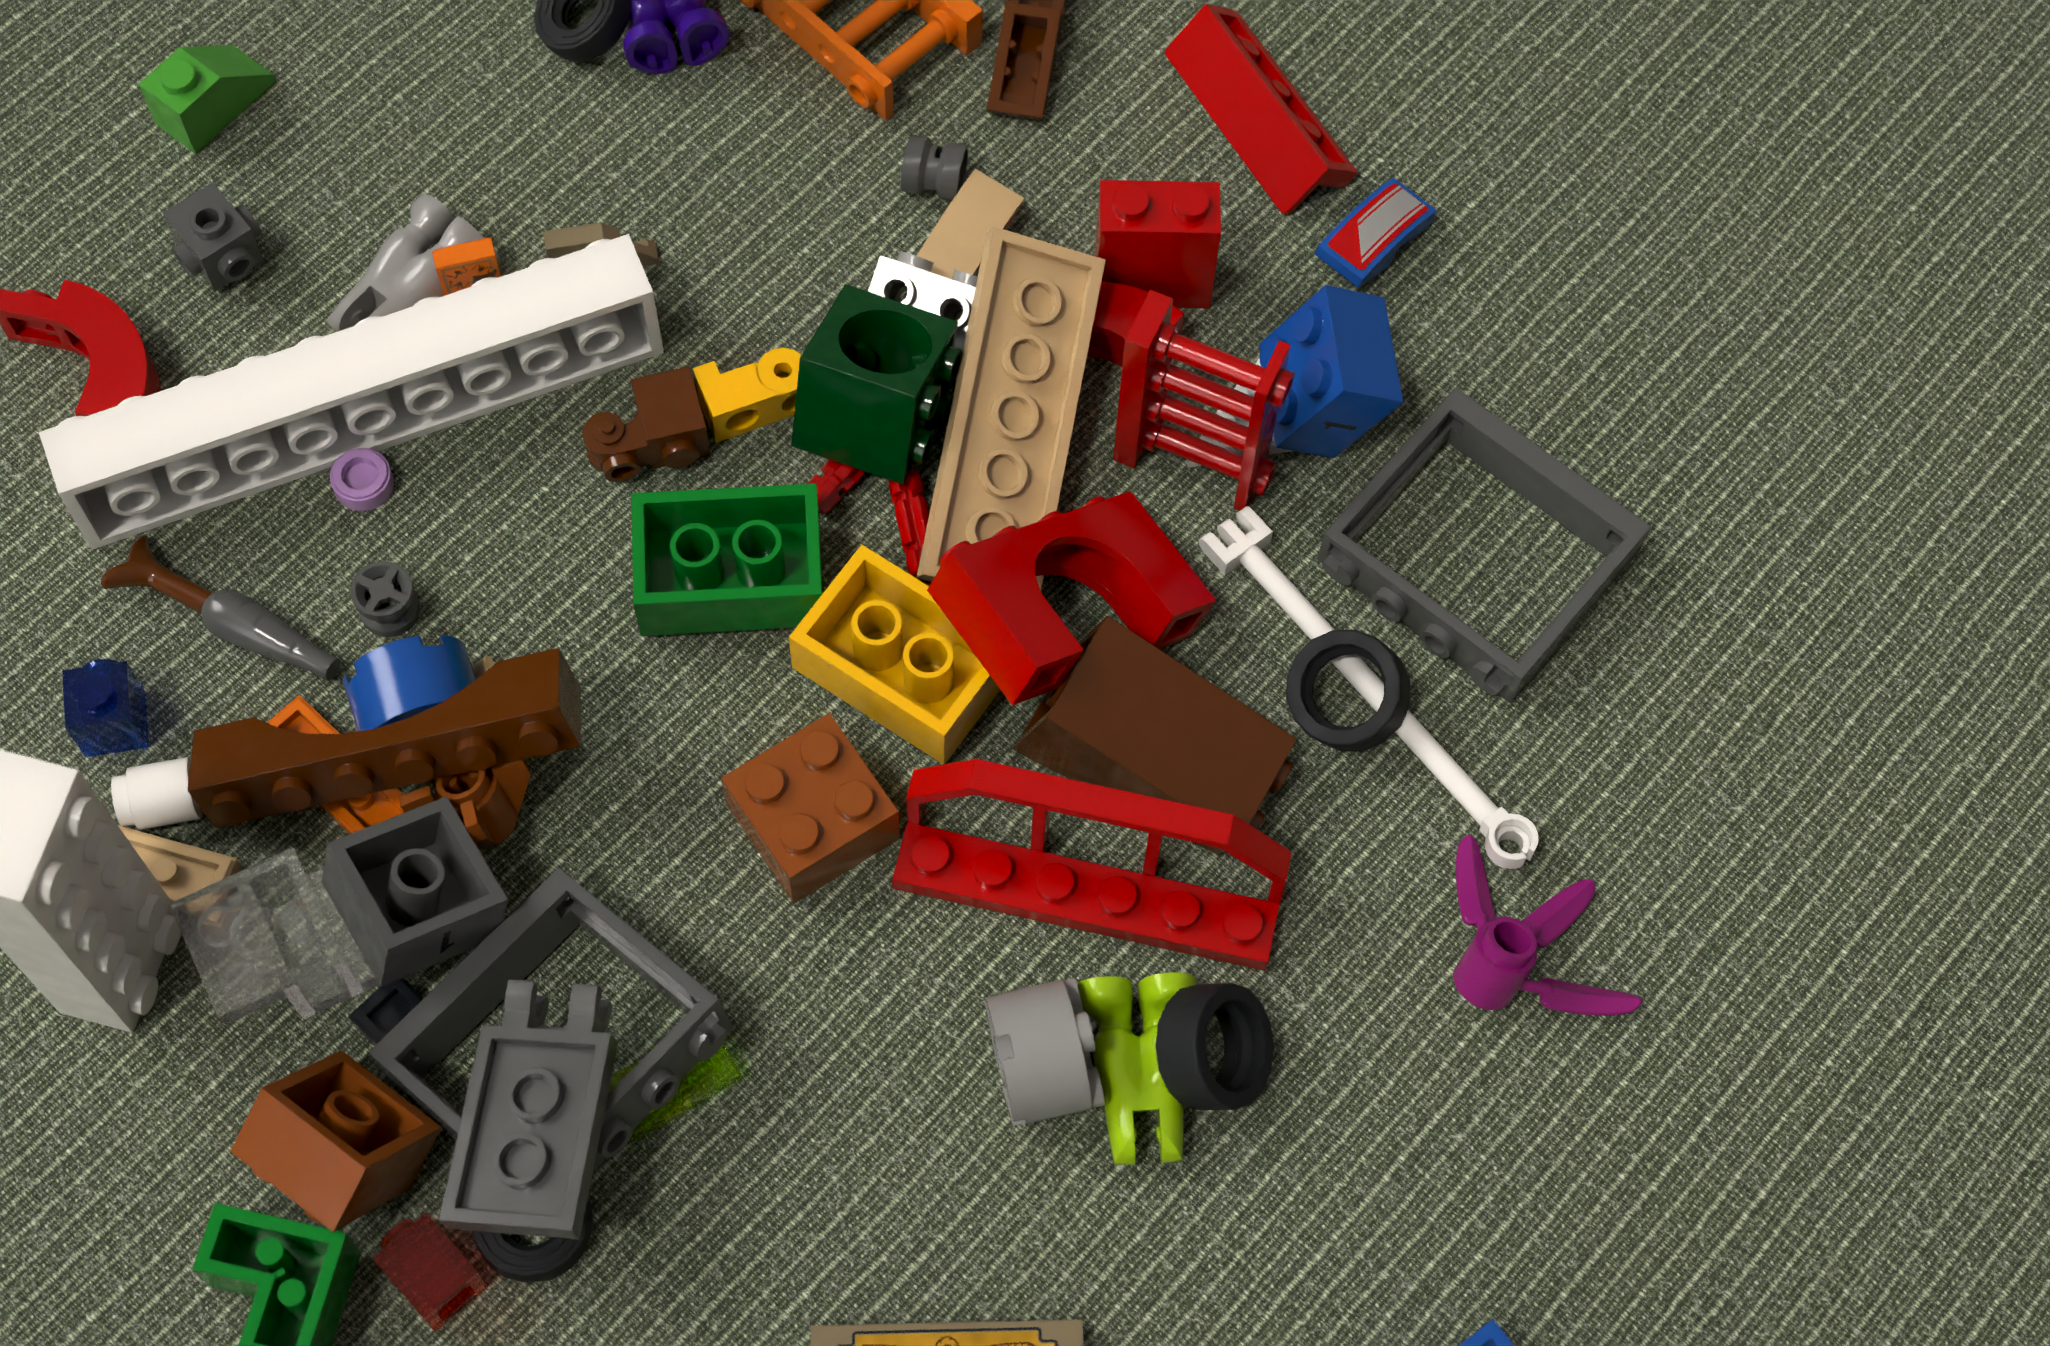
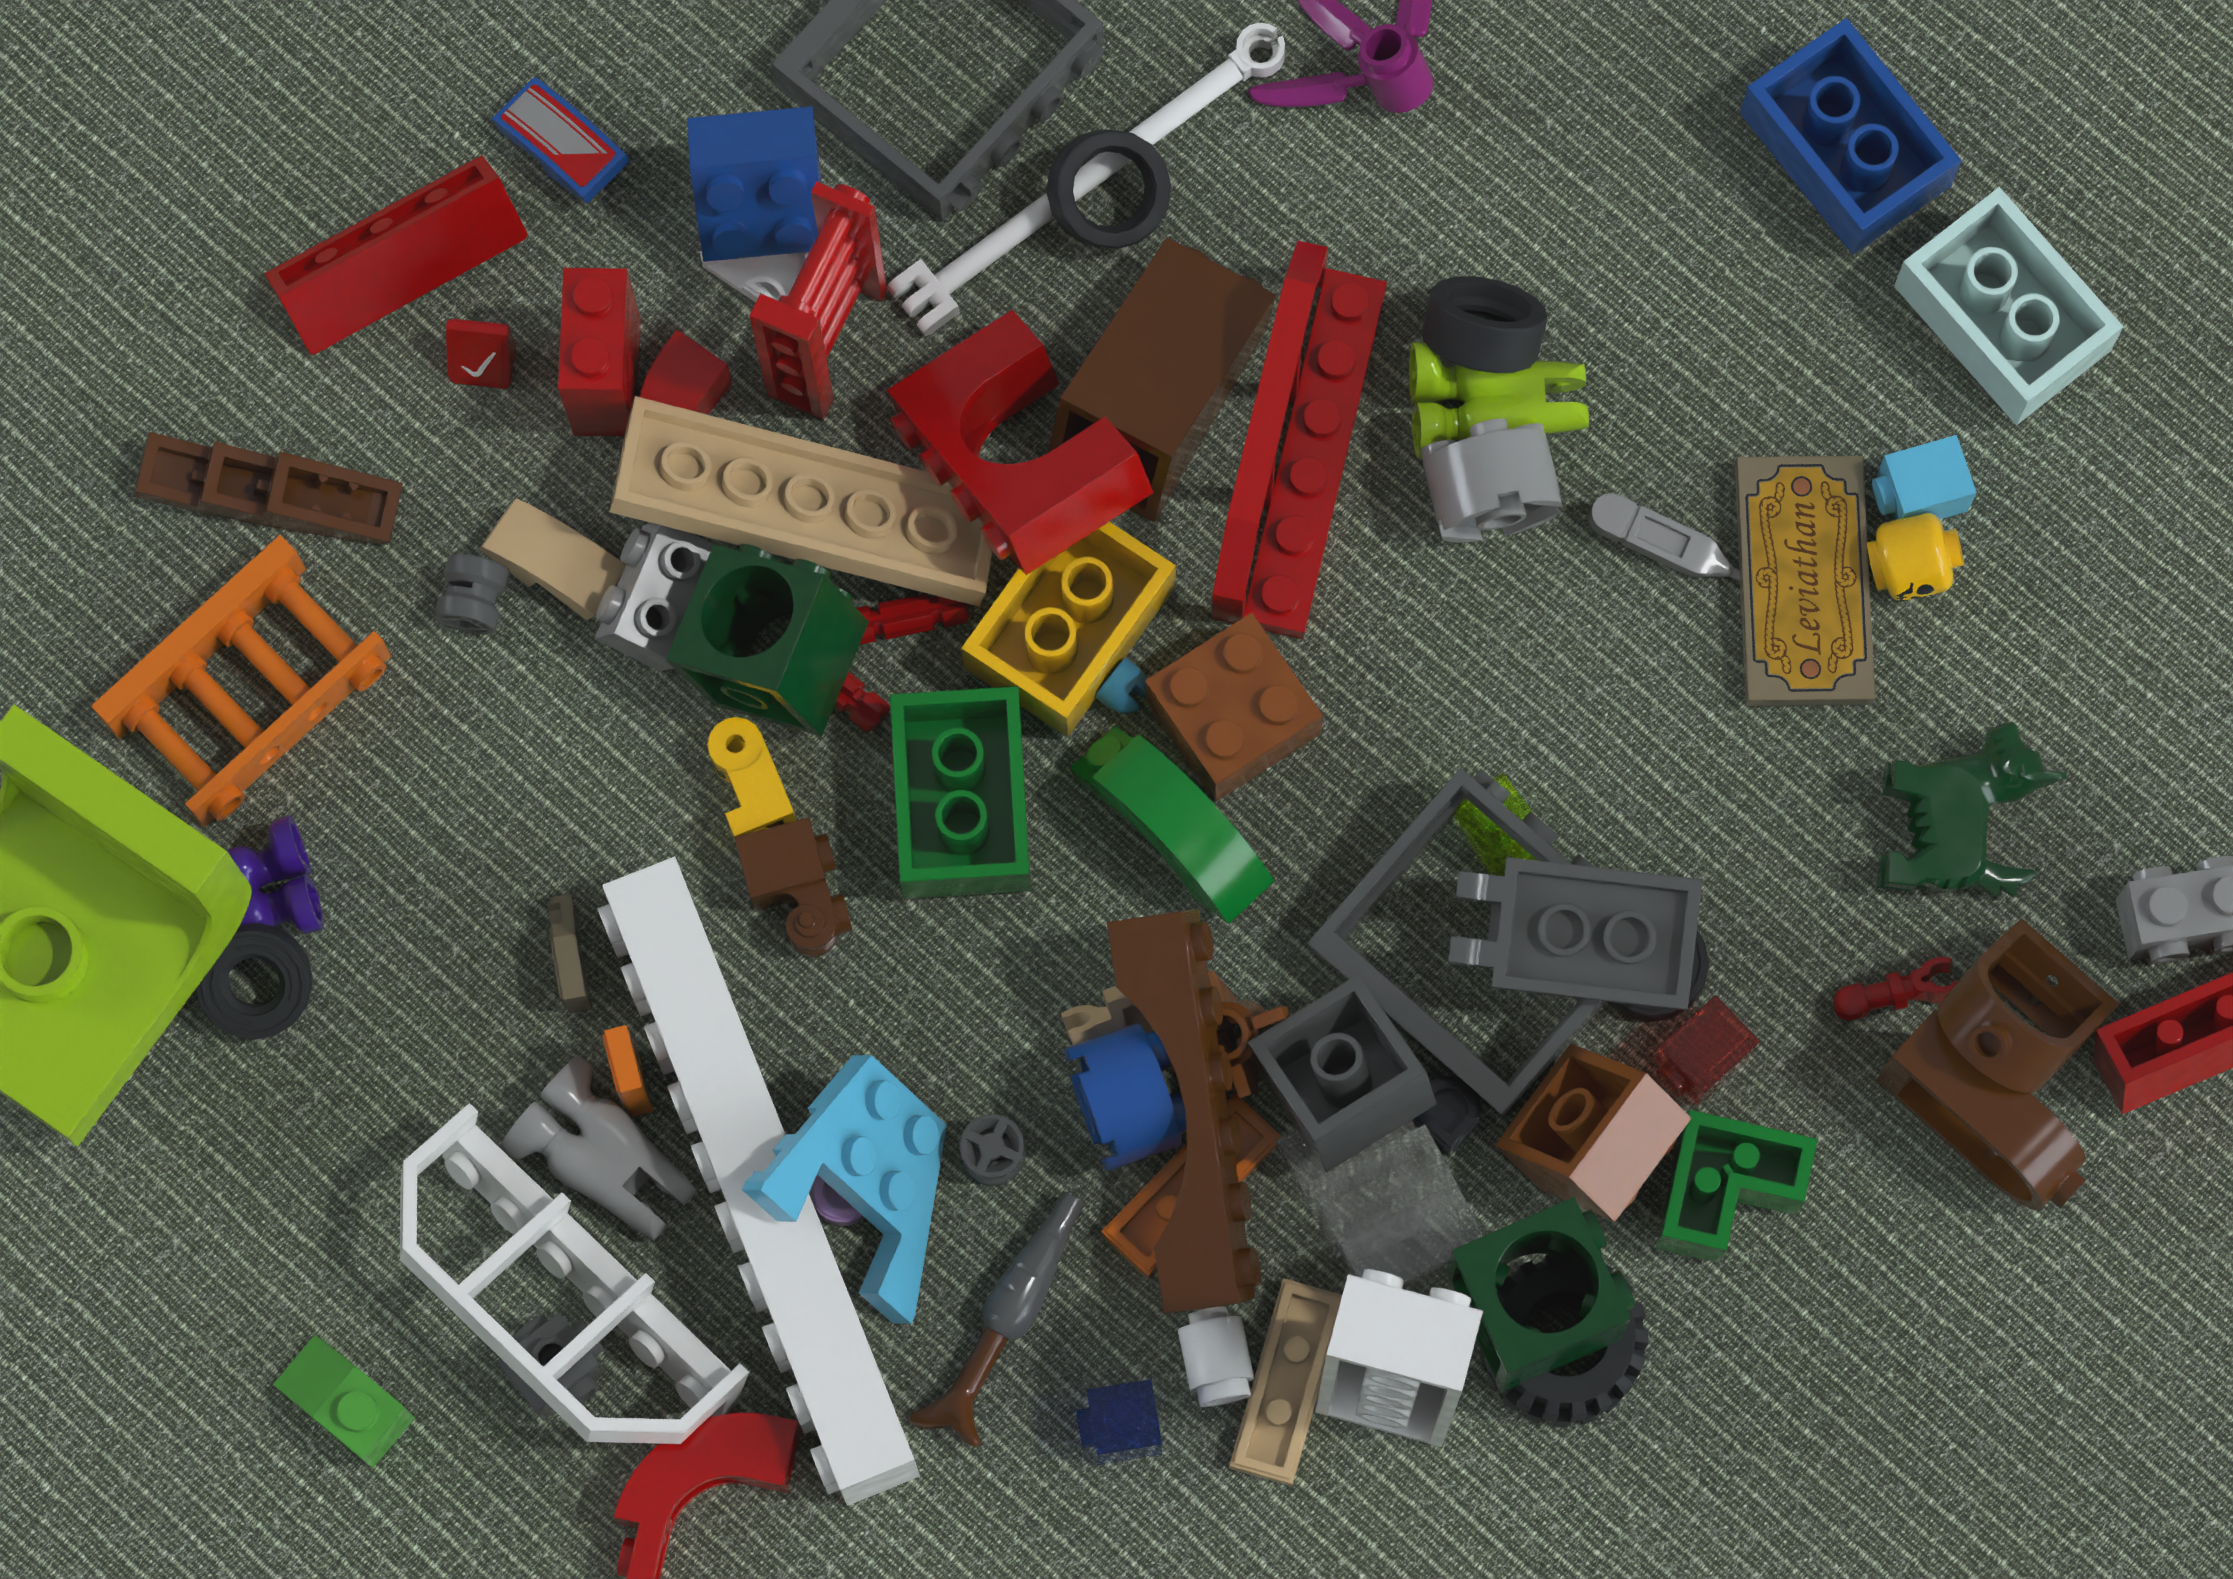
camera: 85 degrees left, 10 degrees up
(101, 1079) = (1569, 1397): none -> black tyre
(106, 1008) = (1521, 1351): none -> dark green brick
(318, 249) = (569, 1252): none -> white plate
(378, 481) = (879, 1155): none -> medium azure wing
(685, 744) = (1176, 820): none -> green arch
(843, 708) = (1122, 681): none -> dark azure hinge
(994, 1238) = (1658, 537): none -> light grey piece
(1168, 159) = (479, 353): none -> red slope

